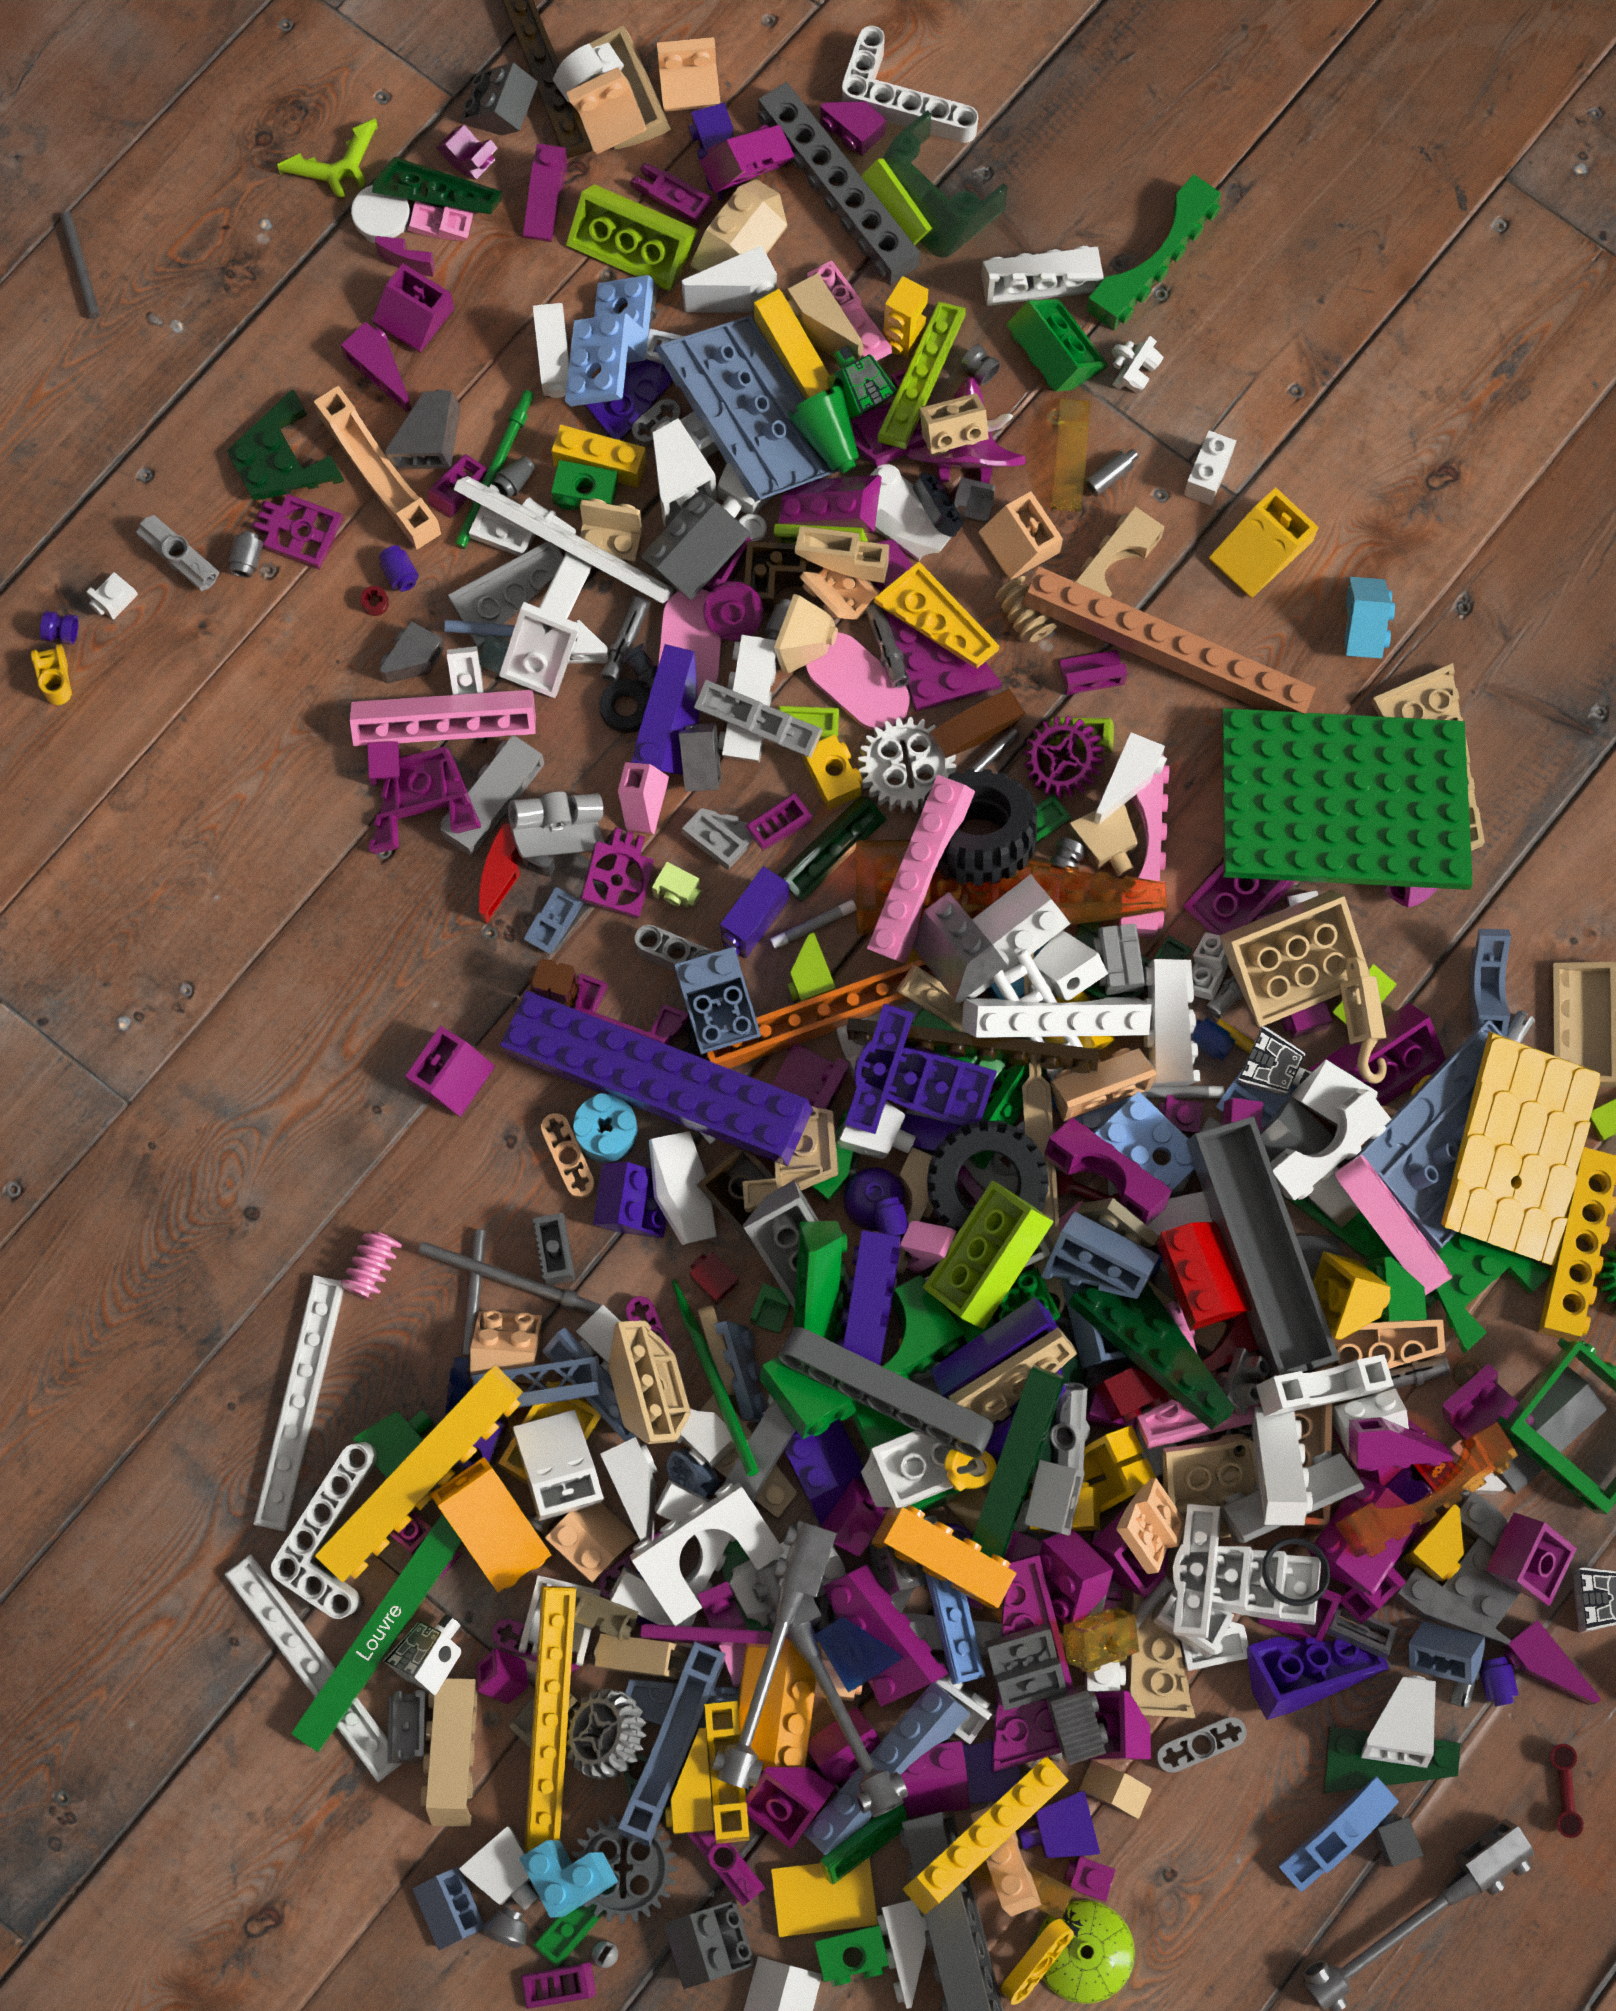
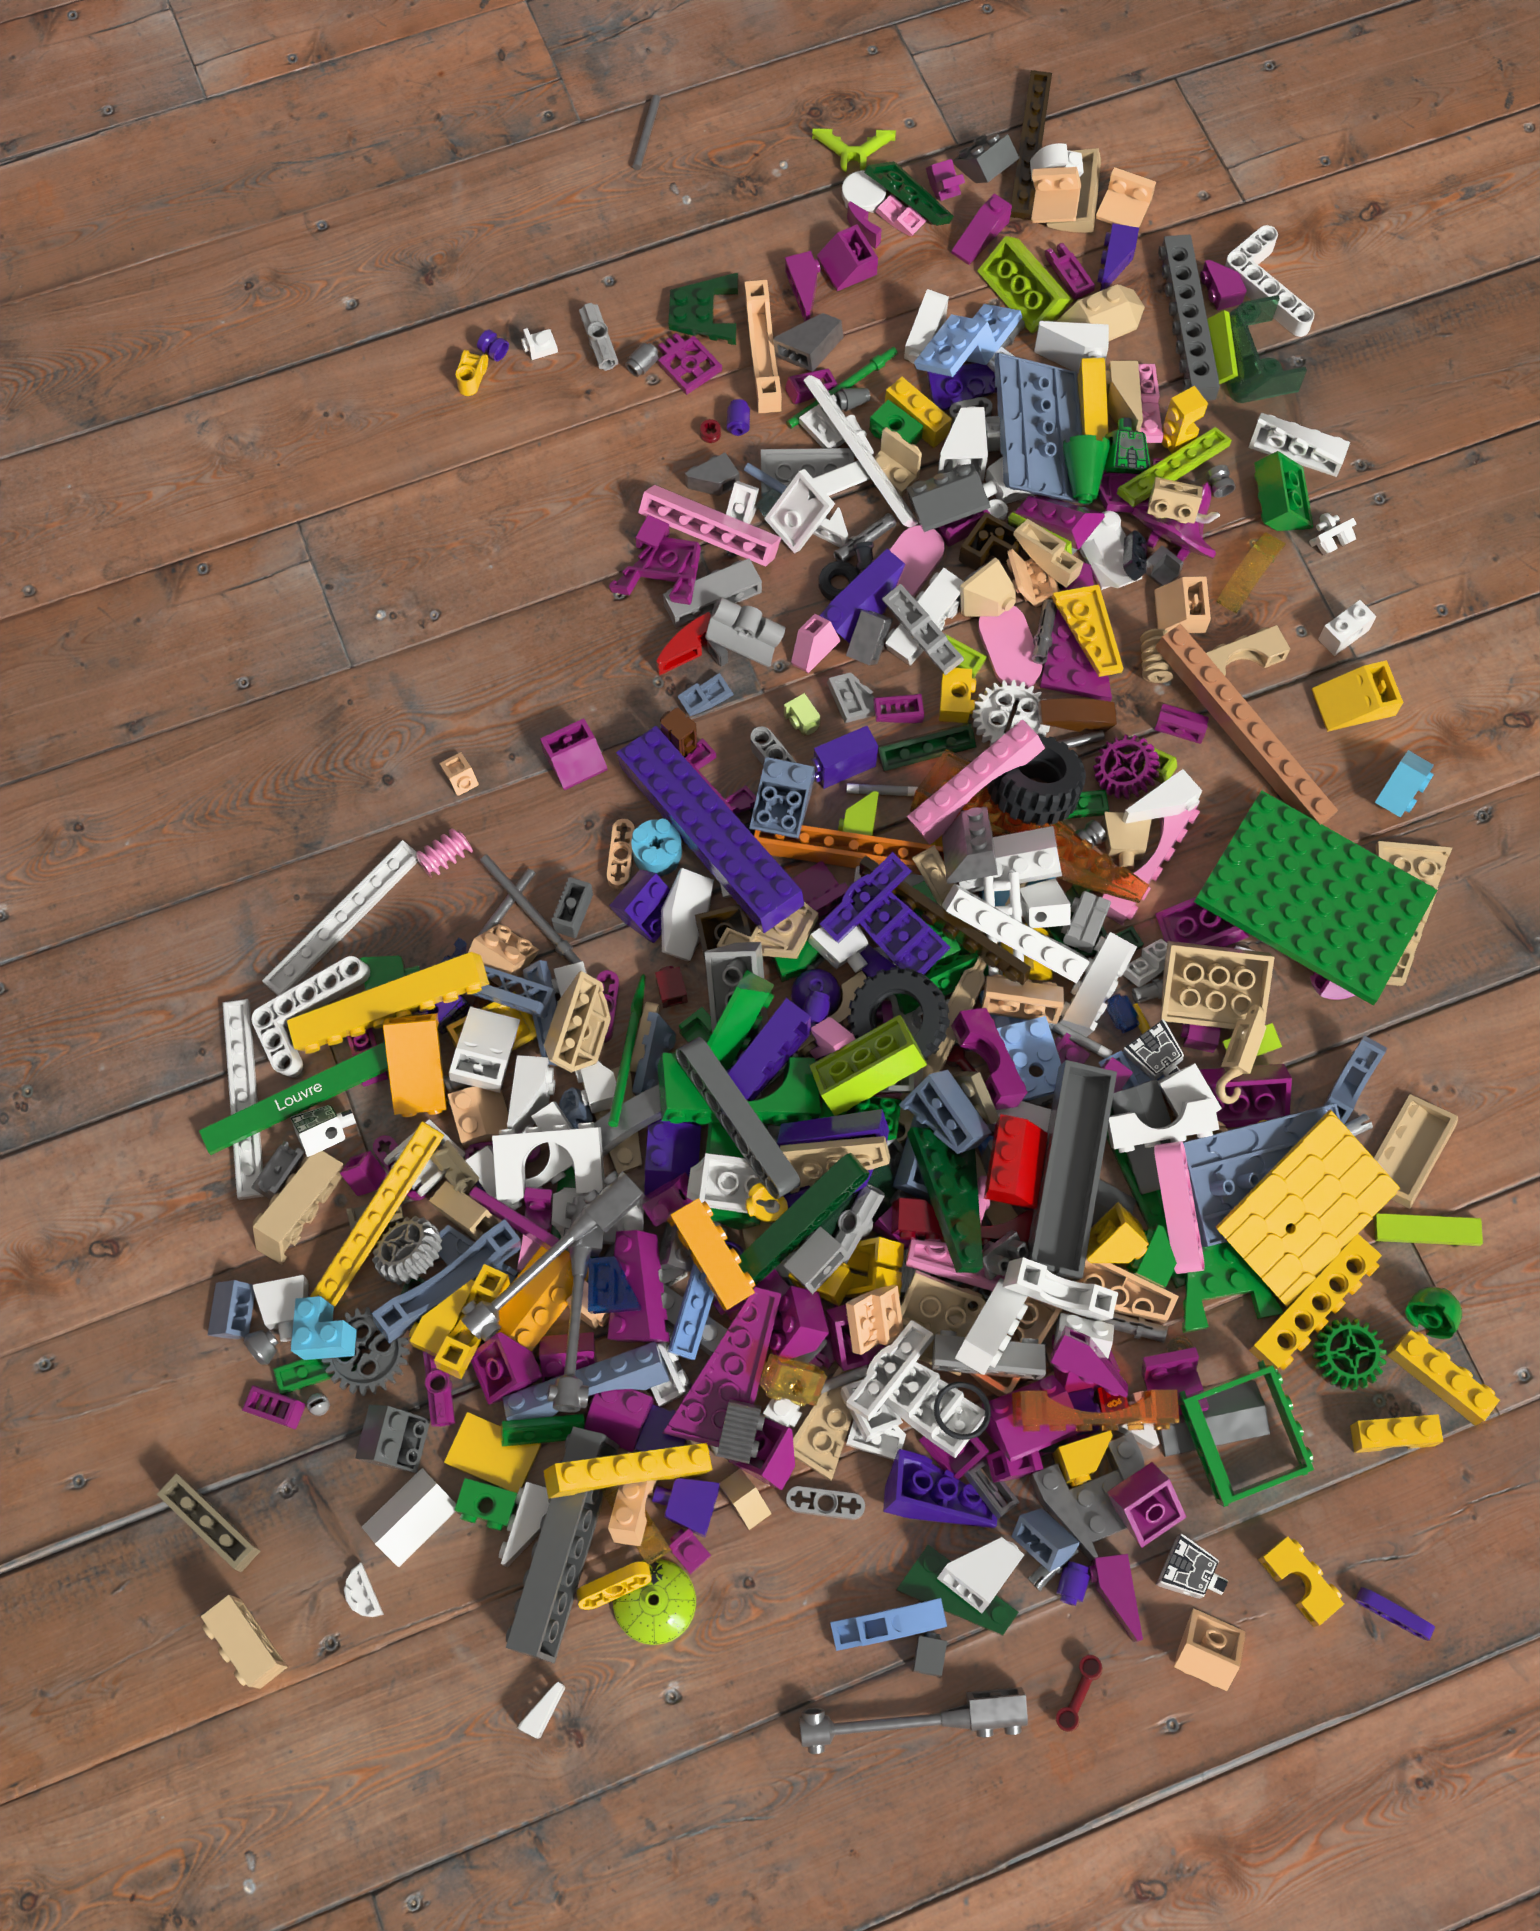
camera: 30 degrees right, 5 degrees down
(331, 1162) = (459, 773): none -> light nougat bracket
(623, 852) = (779, 674): magenta piece -> none
(733, 610) = (950, 551): magenta tile -> none
(746, 157) = (1133, 267): magenta wedge -> none
(1025, 1666) = (726, 1368): dark grey slope -> none
(1110, 472) = (1273, 596): flat silver cylinder -> none
(1118, 294) = (1349, 482): green arch -> none

